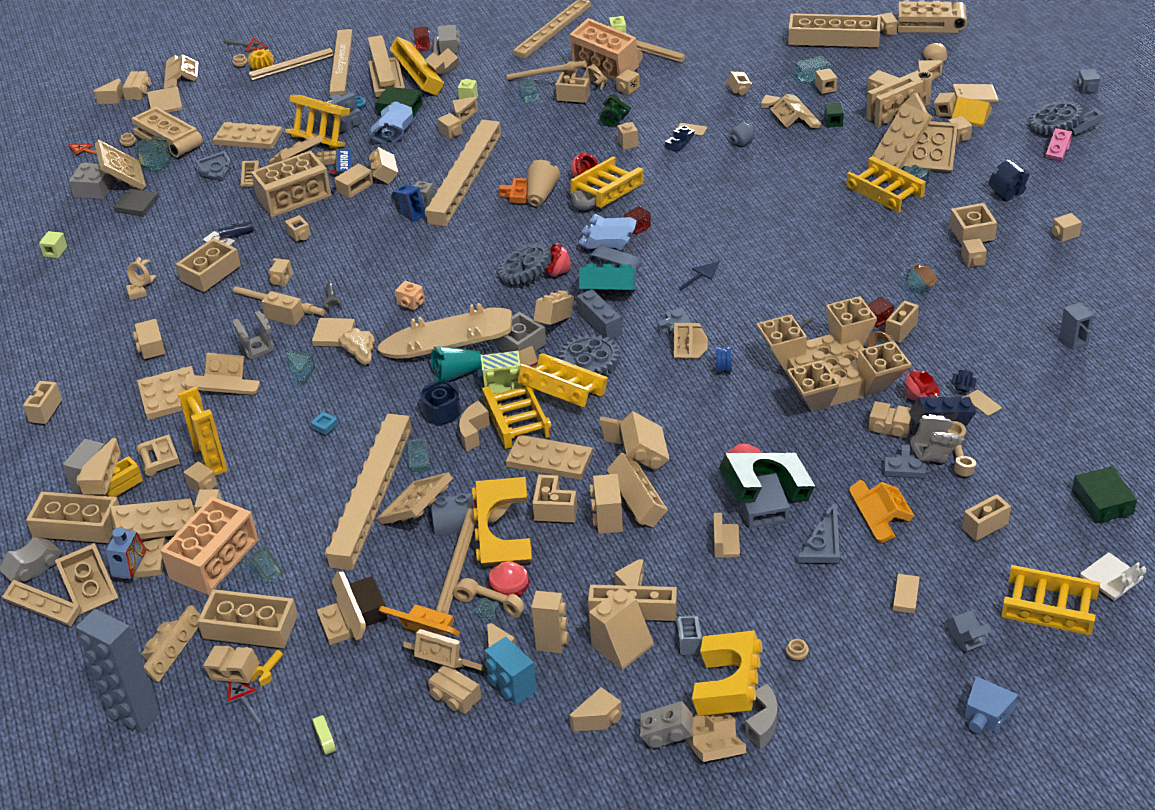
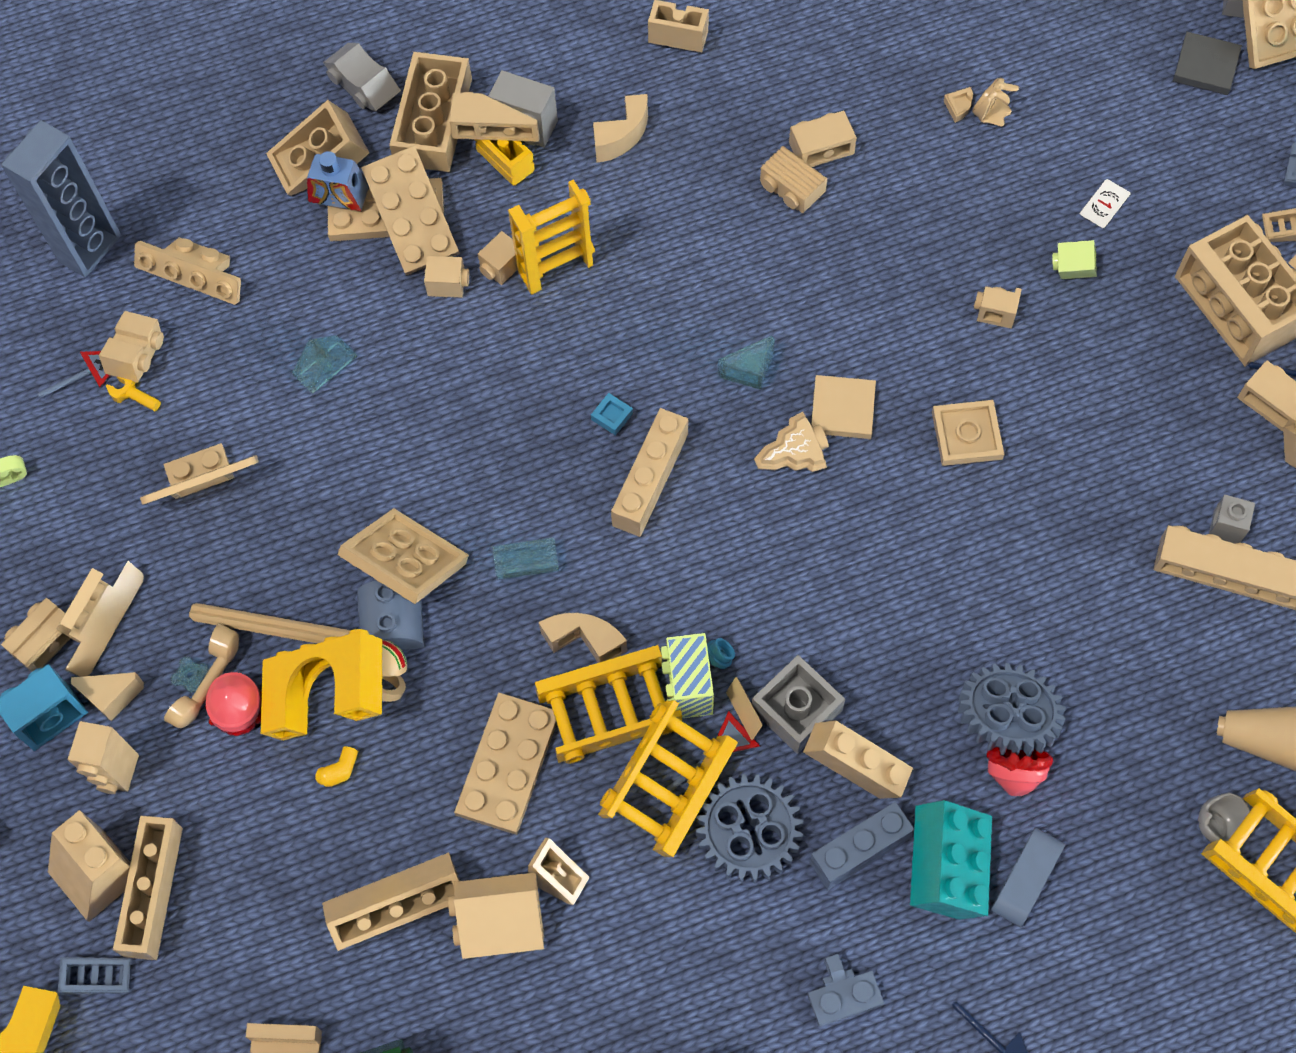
camera: 90 degrees right, 25 degrees up
(42, 603) = (284, 106): tan plate -> none
(114, 425) = (619, 136): none -> tan brick
(161, 392) = (707, 190): tan plate -> none
(164, 453) = (544, 202): tan plate -> none
(174, 352) = (792, 180): none -> tan brick
(208, 264) = (1011, 193): tan brick -> none
(209, 545) = (346, 286): light nougat brick -> none
(223, 374) = (725, 256): tan plate -> none
(235, 229) = (1123, 223): dark blue pin -> none
(248, 618) = (205, 355): tan brick -> none
(257, 241) = (1075, 259): none -> yellowish green brick
(263, 340) = (808, 285): light grey piece -> none
(282, 308) = (896, 320): tan brick -> none
(301, 232) = (1122, 319): tan brick -> none
(307, 307) = (907, 357): tan bar -> none
(332, 300) = (927, 394): dark grey piece -> none
(358, 284) = (967, 432): none -> tan plate
(366, 400) = (649, 472): none -> tan brick
(368, 493) = (453, 493): tan brick -> none
(368, 600) = (222, 508): dark brown brick -> none
(409, 202) = (1208, 486): blue torso -> none
(410, 295) = (922, 517): light nougat brick -> none
(424, 619) = (163, 584): light orange plate -> none
(440, 402) = (640, 566): dark blue brick -> none
(448, 332) = (806, 587): tan piece -> none
(454, 362) = (734, 600): teal cone -> none
(516, 192) = (1258, 689): orange hinge -> none
(552, 503) = (379, 758): tan brick -> none
(552, 528) = (340, 771): none -> yellow arm
(606, 503) = (357, 849): tan brick -> none
(607, 232) = (1100, 862): light blue brick -> none
(630, 575) = (203, 887): tan slope -> none
(643, 219) = (1161, 927): clear red brick -> none
(689, 341) = (779, 1011): tan slope -> none

